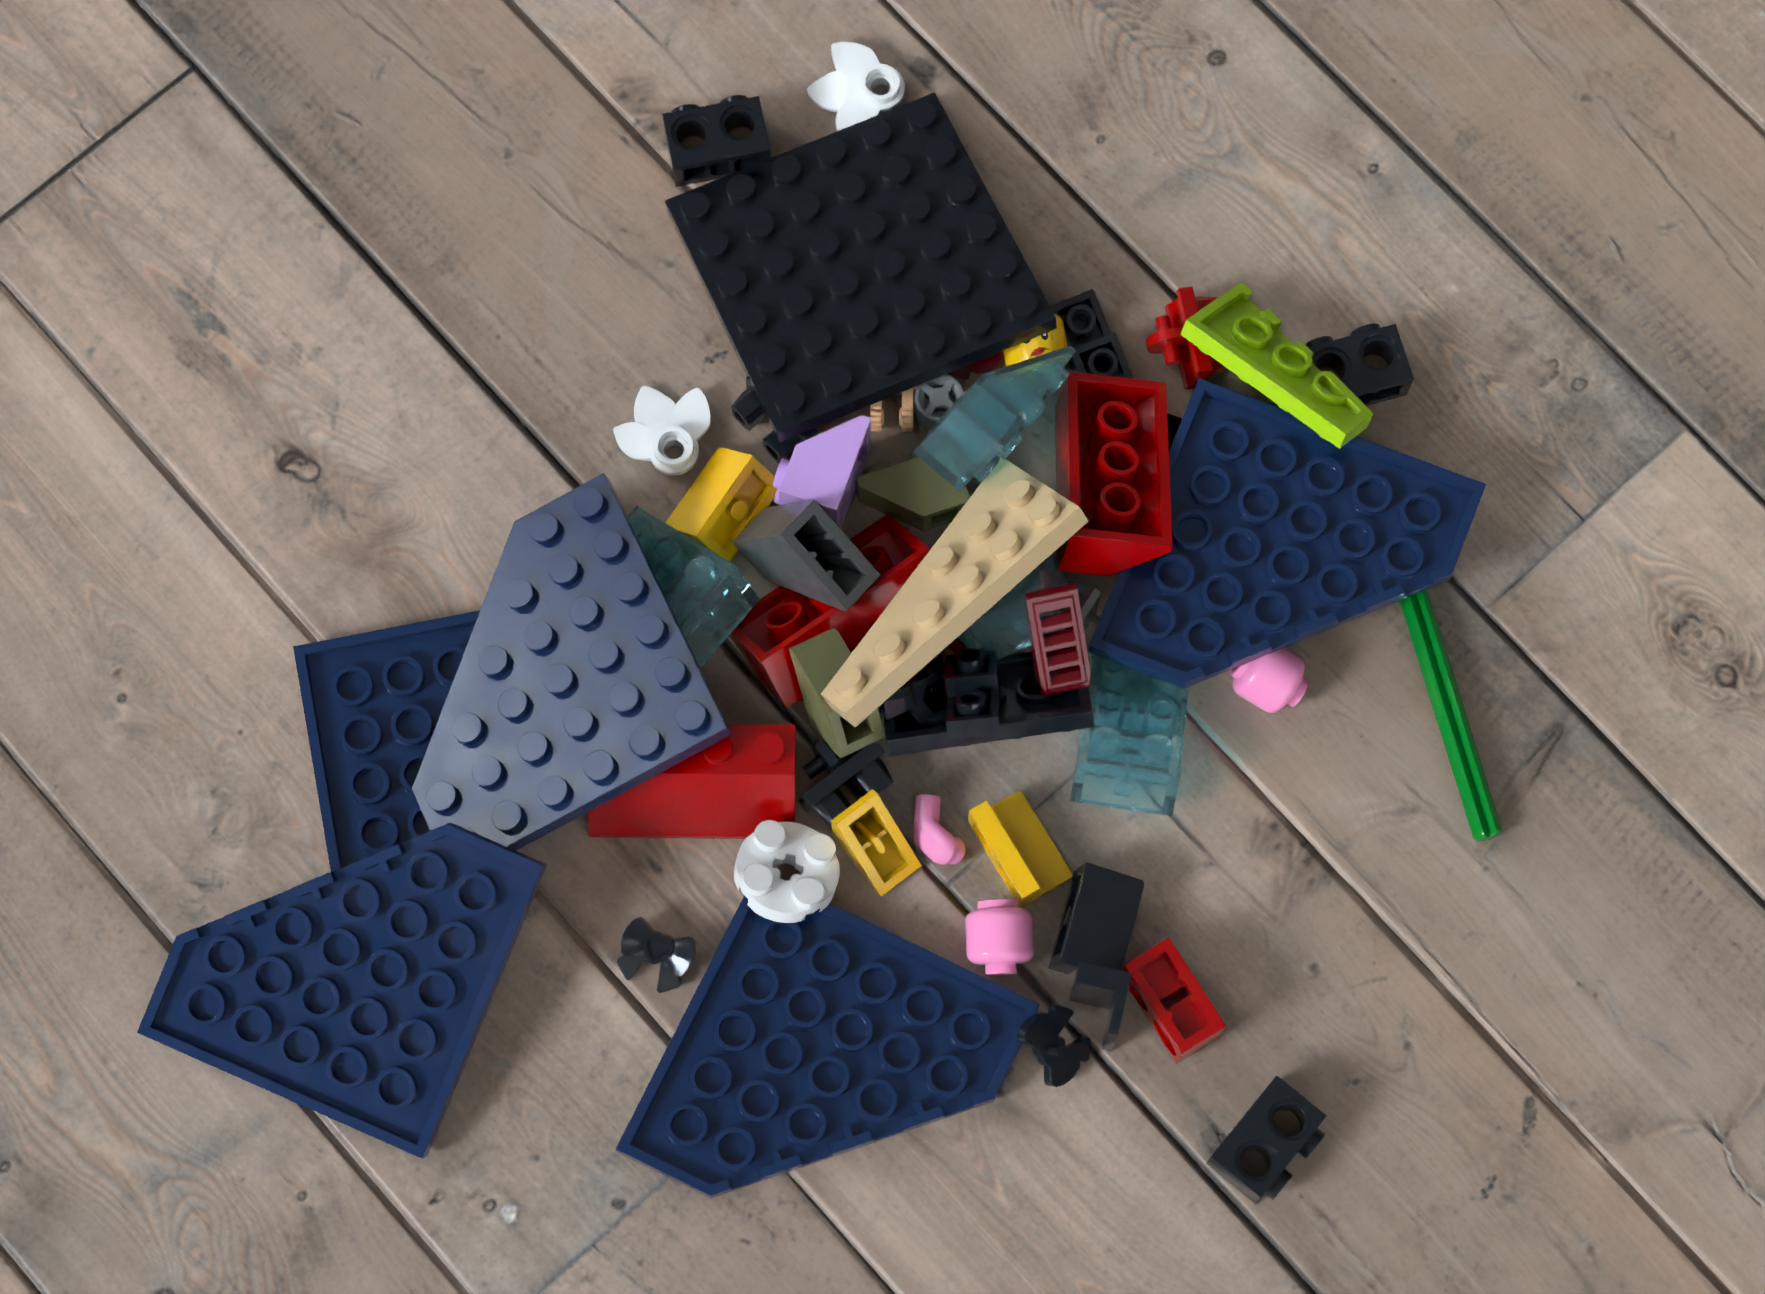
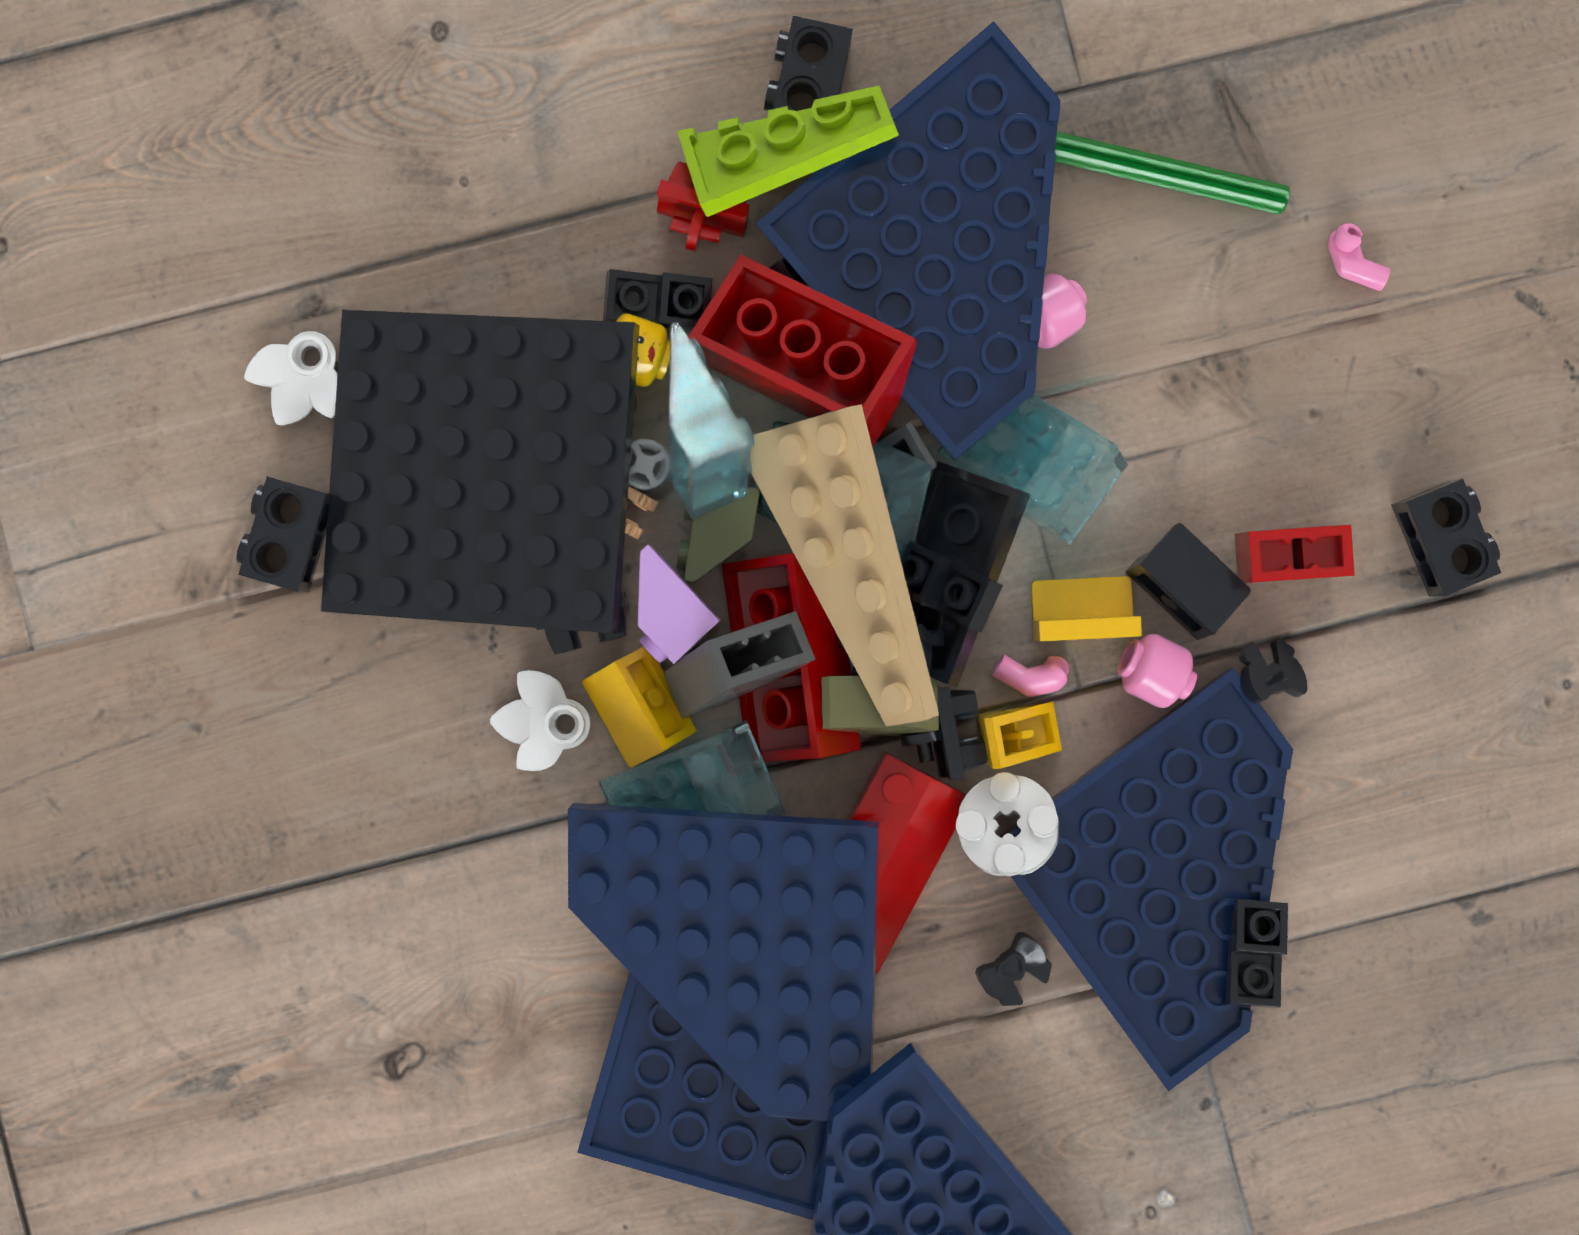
camera: 65 degrees left, 15 degrees up
(786, 1158) = (1256, 953): none -> black slope
(1064, 668) = (946, 487): dark red slope -> none
(1103, 989) = (1263, 606): black panel -> none
(1469, 923) = (1349, 259): none -> bright pink arm

